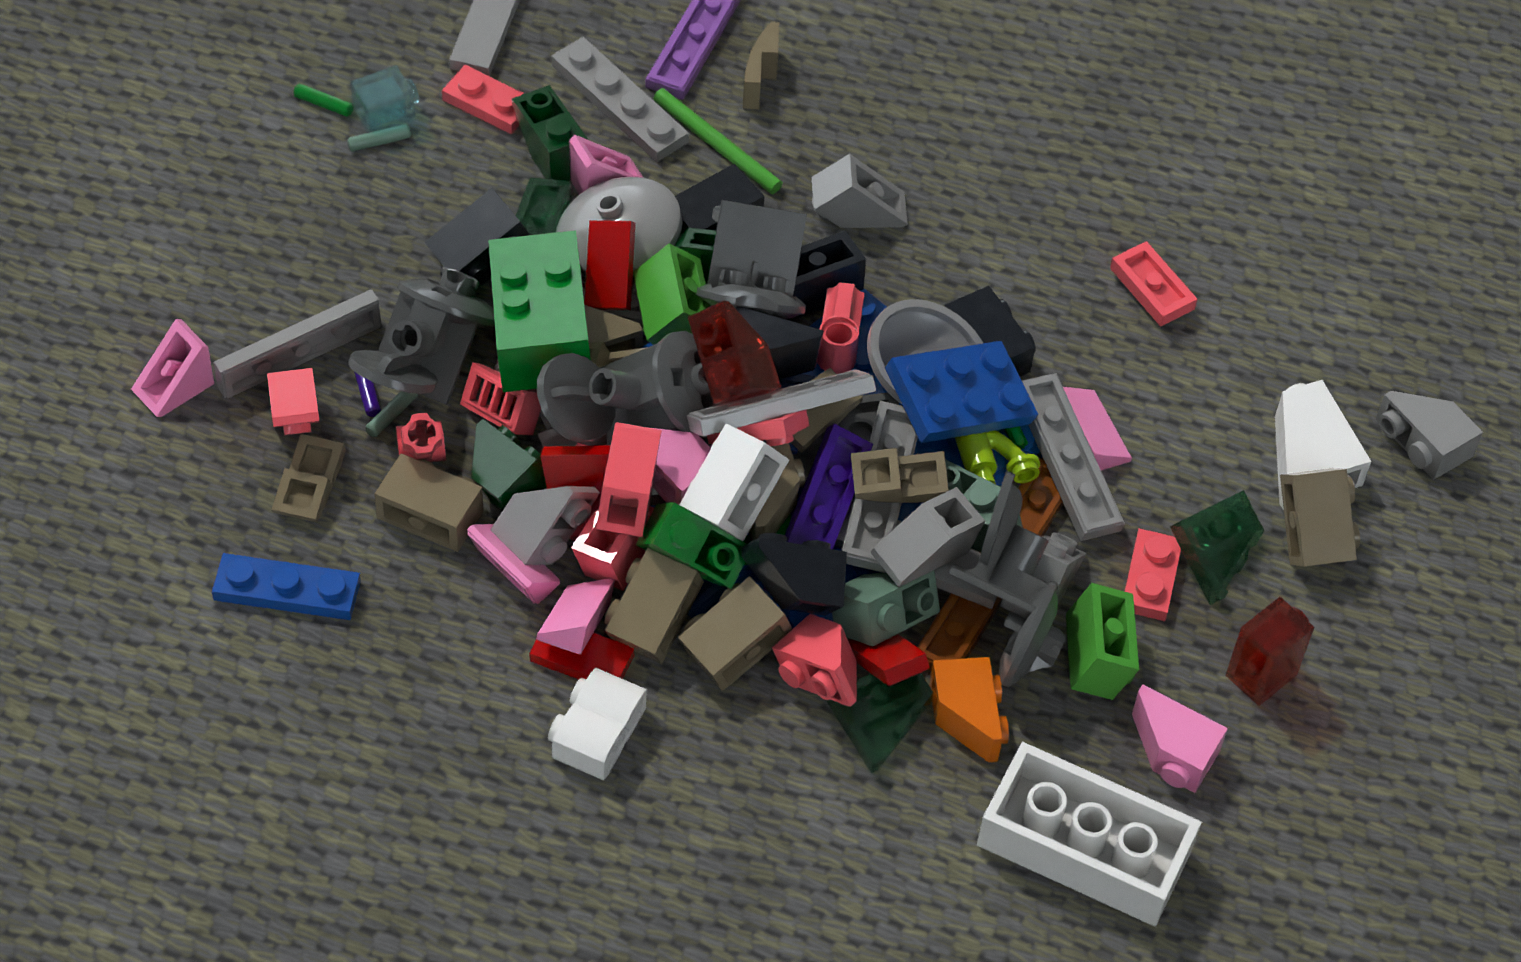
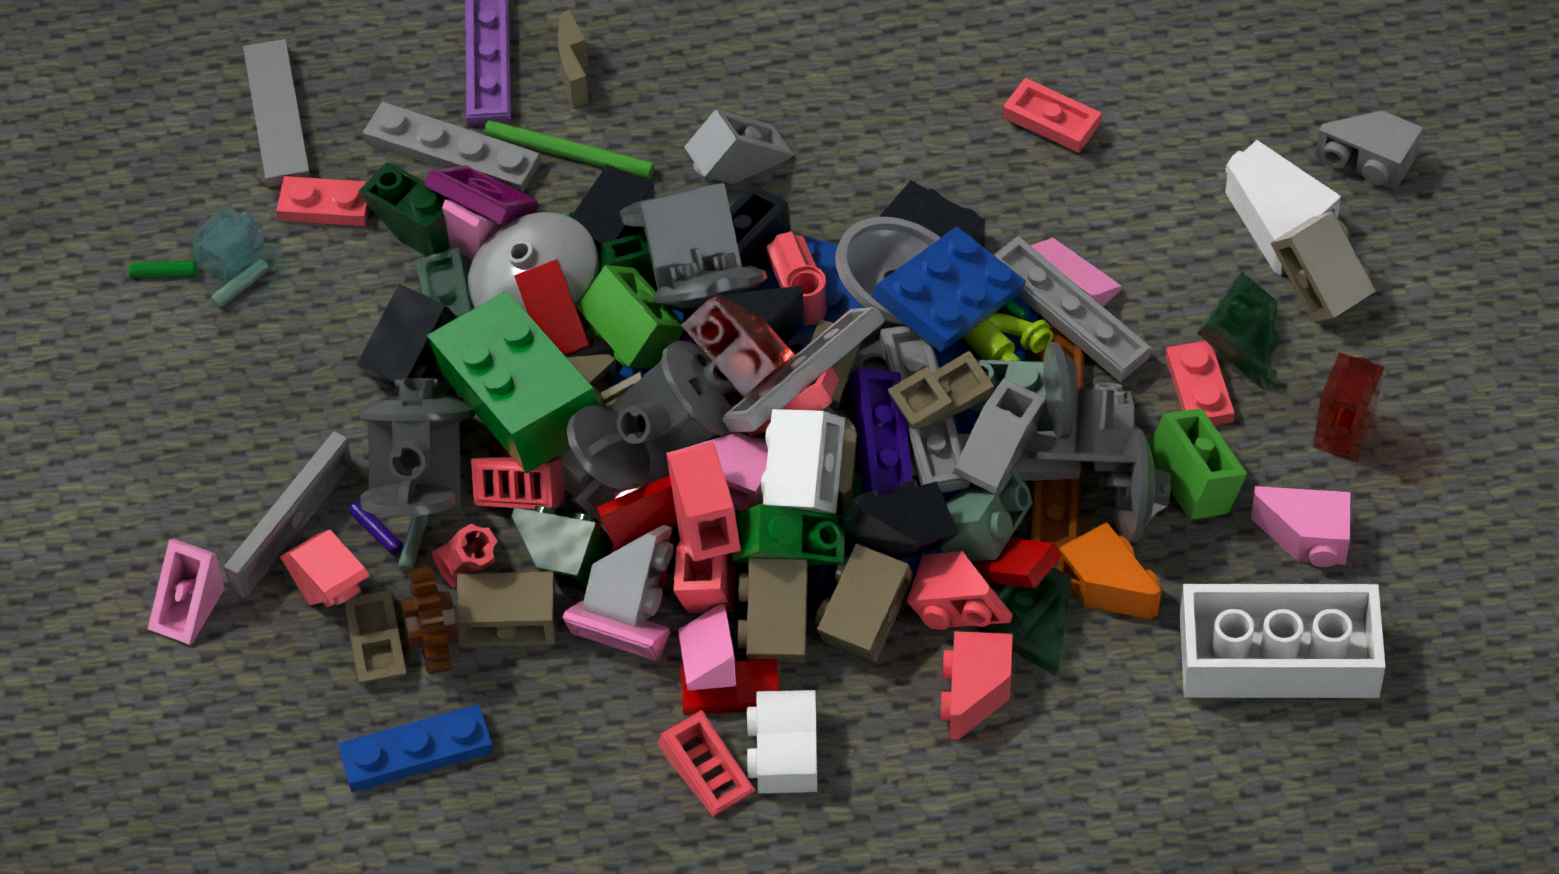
camera: 20 degrees left, 0 degrees up
(352, 481) = (429, 620): none -> reddish brown gear
(516, 676) = (687, 730): none -> coral slope
(613, 144) = (481, 193): none -> magenta tile
(799, 744) = (979, 679): none -> coral slope

